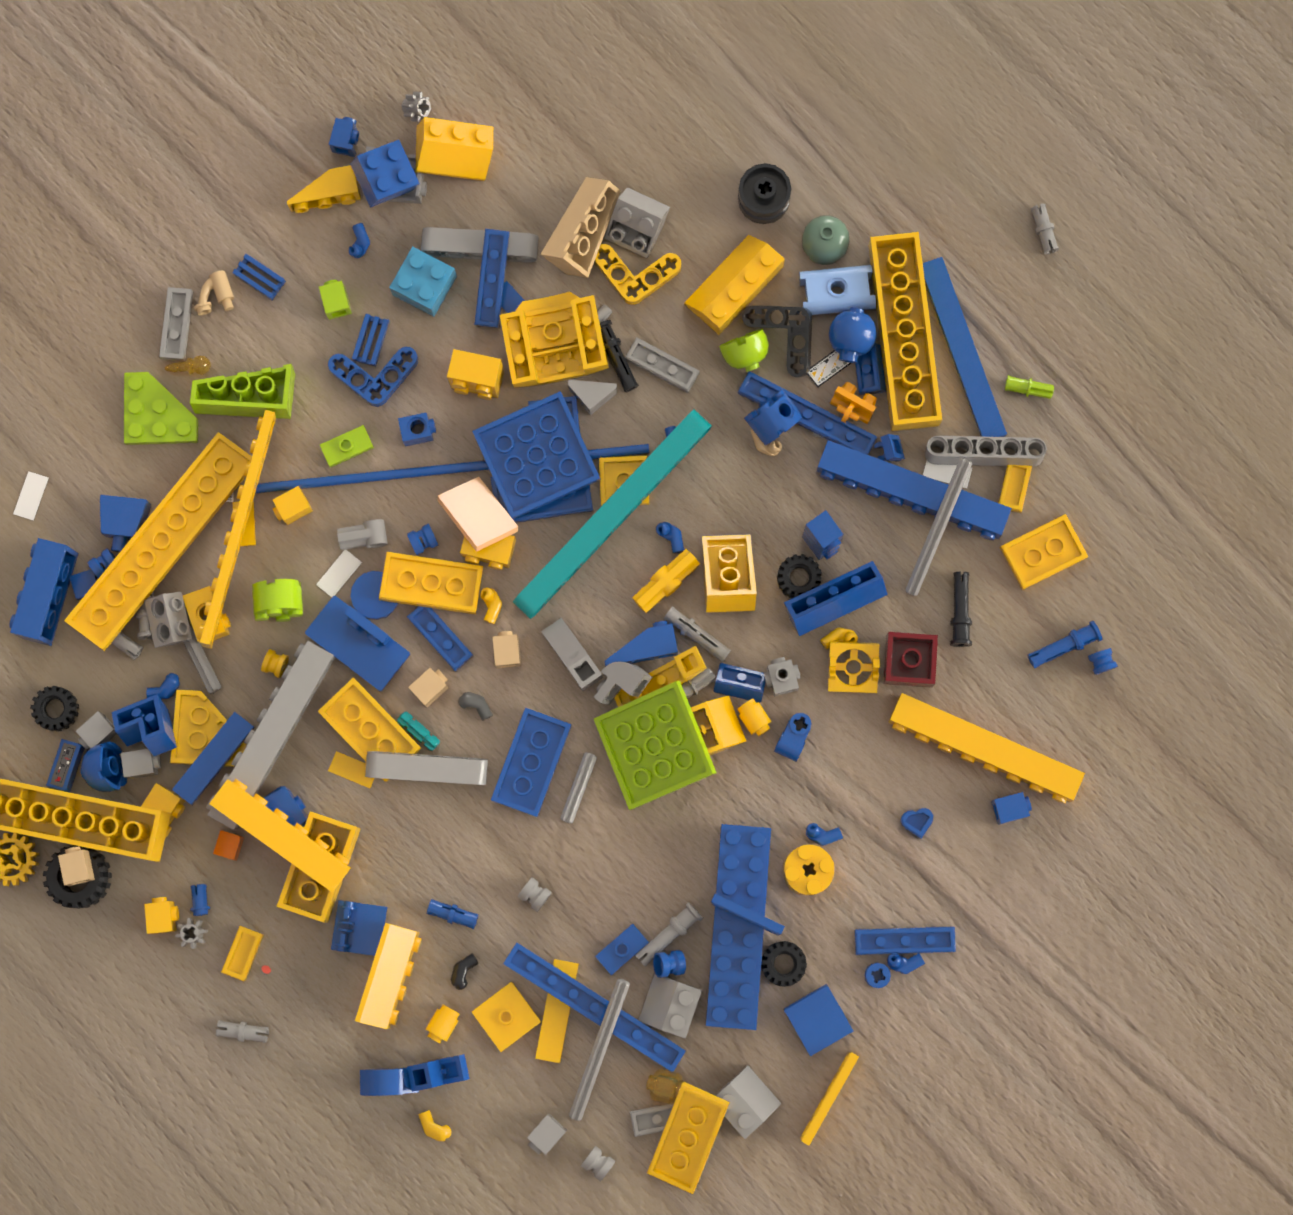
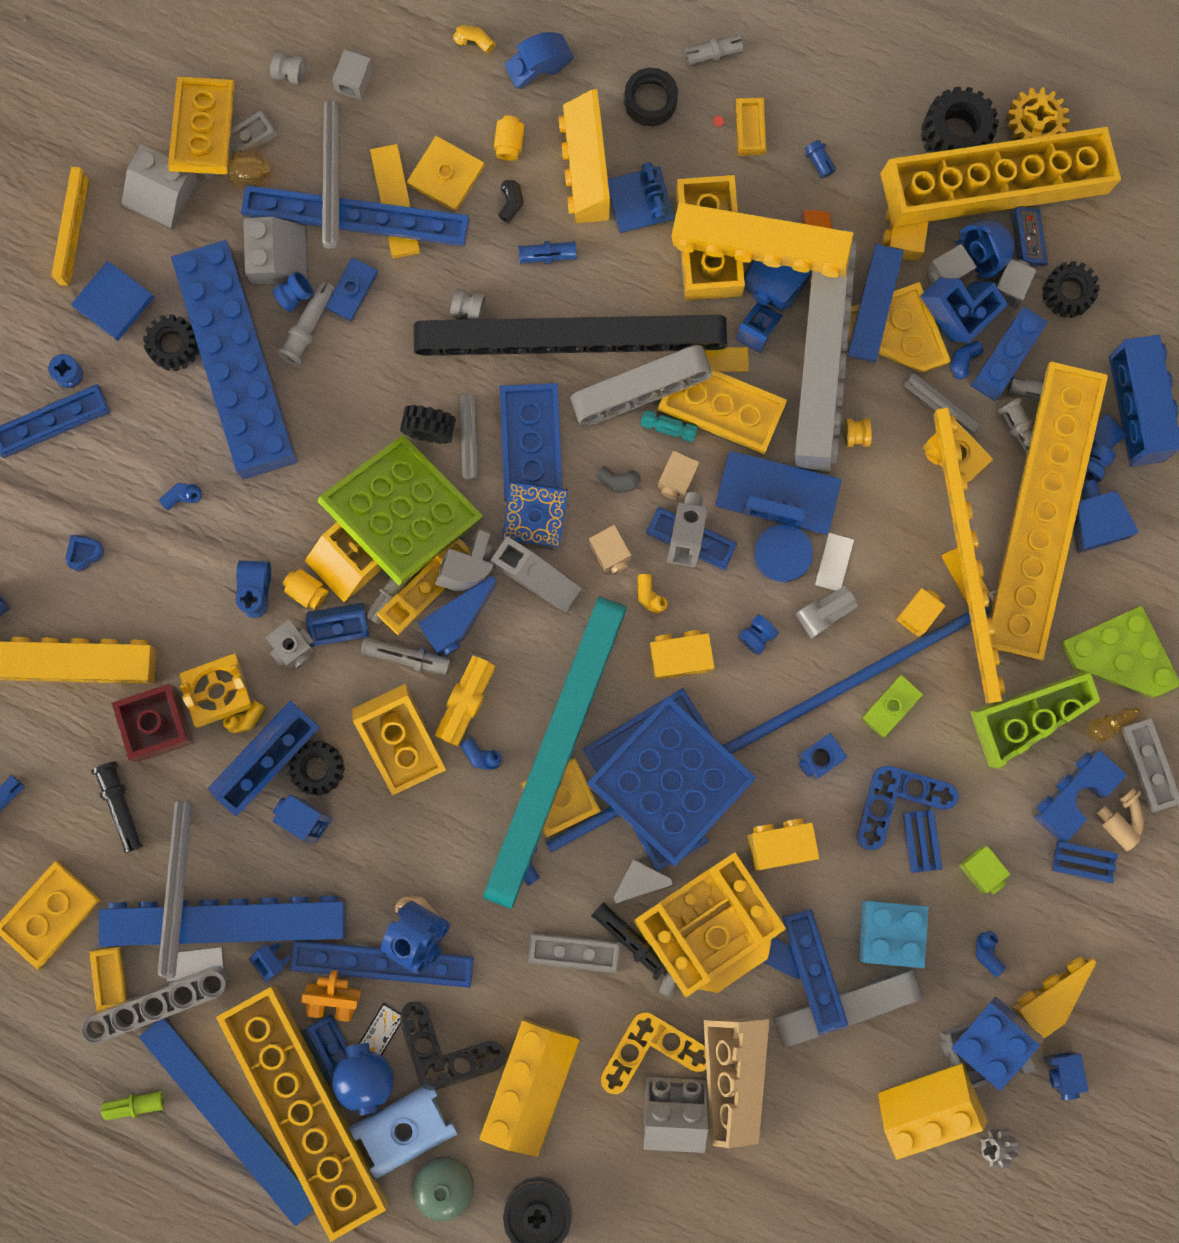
camera: 150 degrees right, 0 degrees up
(76, 866) = (964, 124): tan brick -> none
(116, 682) = (1009, 353): none -> blue arch
(161, 916) = (852, 125): yellow brick -> none
(168, 619) = (996, 427): light grey brick -> none
(198, 932) = (812, 113): light grey gear -> none
(259, 319) = (1060, 811): none -> blue arch
(277, 600) = (886, 497): lime brick -> none
(293, 1008) = (651, 76): none -> black tyre
(311, 781) = (758, 327): none -> blue slope
(431, 583) = (727, 590): yellow tile -> none
(438, 1072) = (494, 86): blue brick -> none
(448, 629) = (687, 531): none -> light grey torso
(464, 836) = (569, 335): none -> black beam
(477, 513) = (708, 685): light nougat tile -> none
(552, 702) = (535, 513): none -> blue plate
(606, 806) = (428, 424): none -> black tyre
(746, 350) = (481, 1009): lime cylinder -> none
(747, 915) = (220, 358): blue tile -> none
(822, 867) = (170, 436): yellow brick -> none
(903, 964) = (40, 395): blue arm -> none

